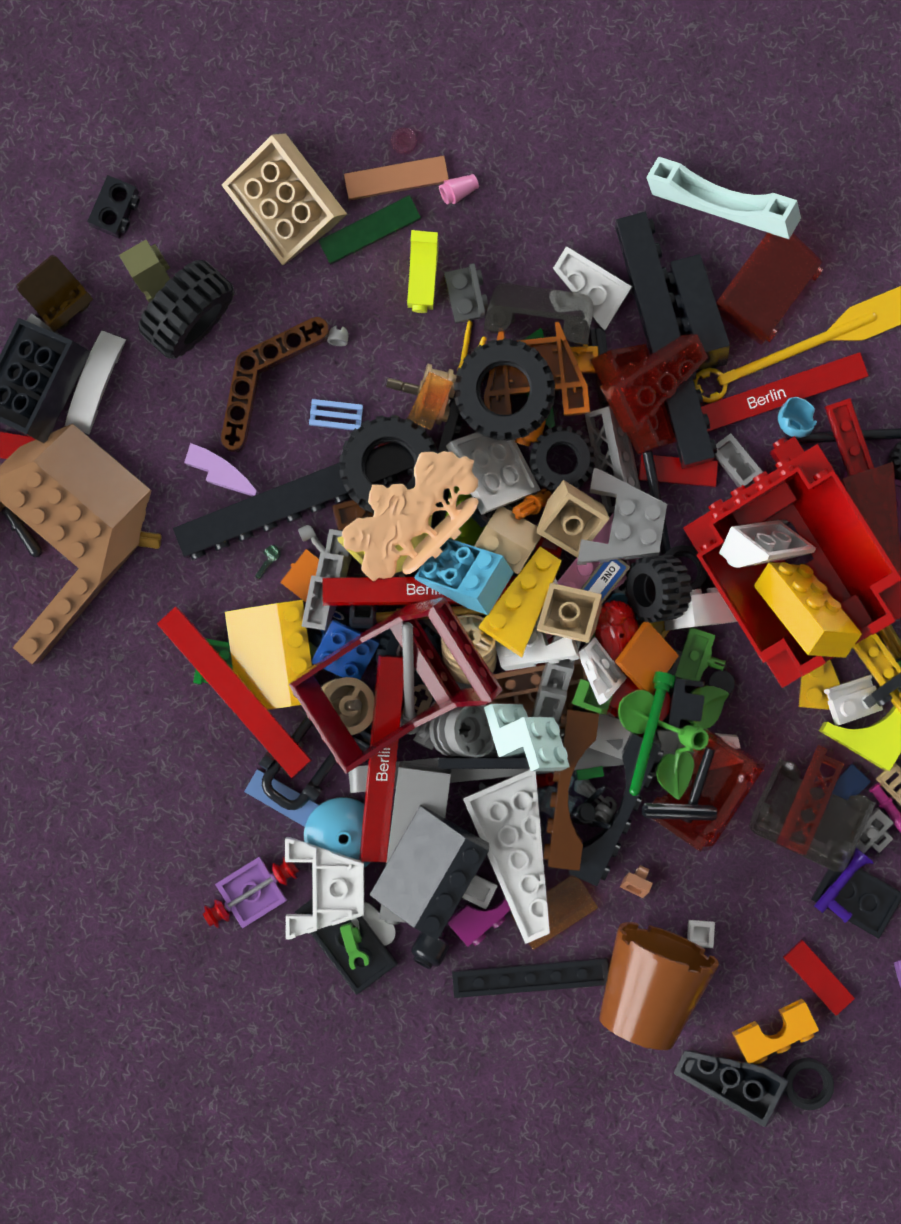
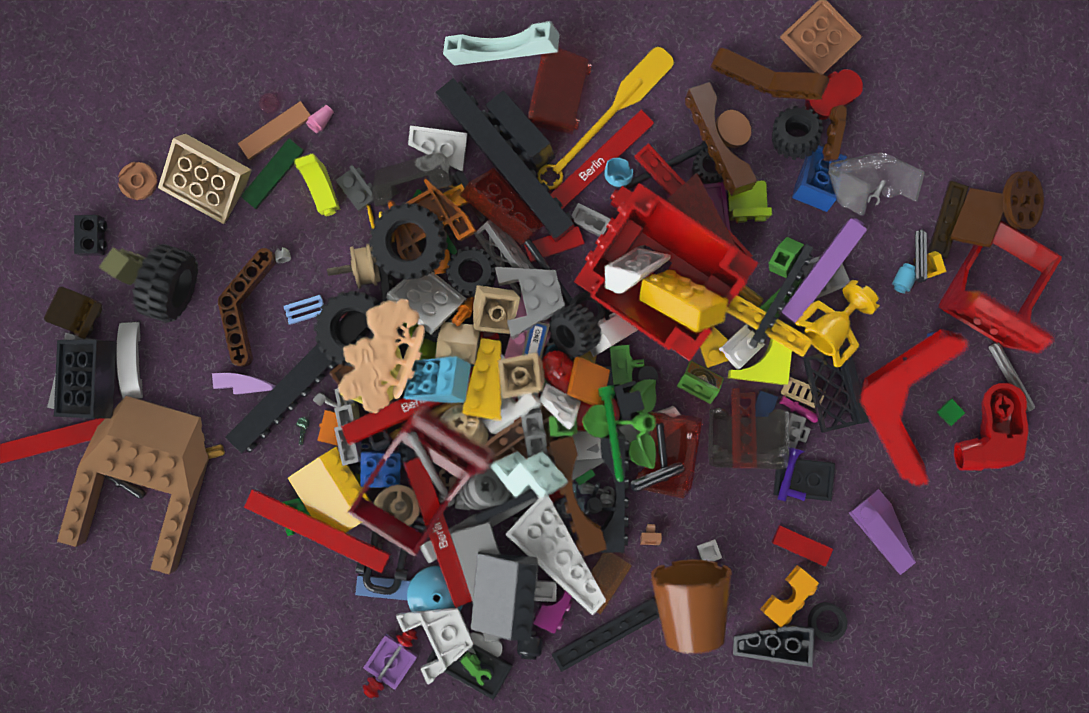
camera: 25 degrees left, 0 degrees up
(204, 172) = (141, 185): none -> nougat tile
(430, 400) = (360, 271): clear orange plate -> none
(646, 385) = (504, 195): clear red wedge -> none
(783, 721) = (700, 382): none -> bright green panel

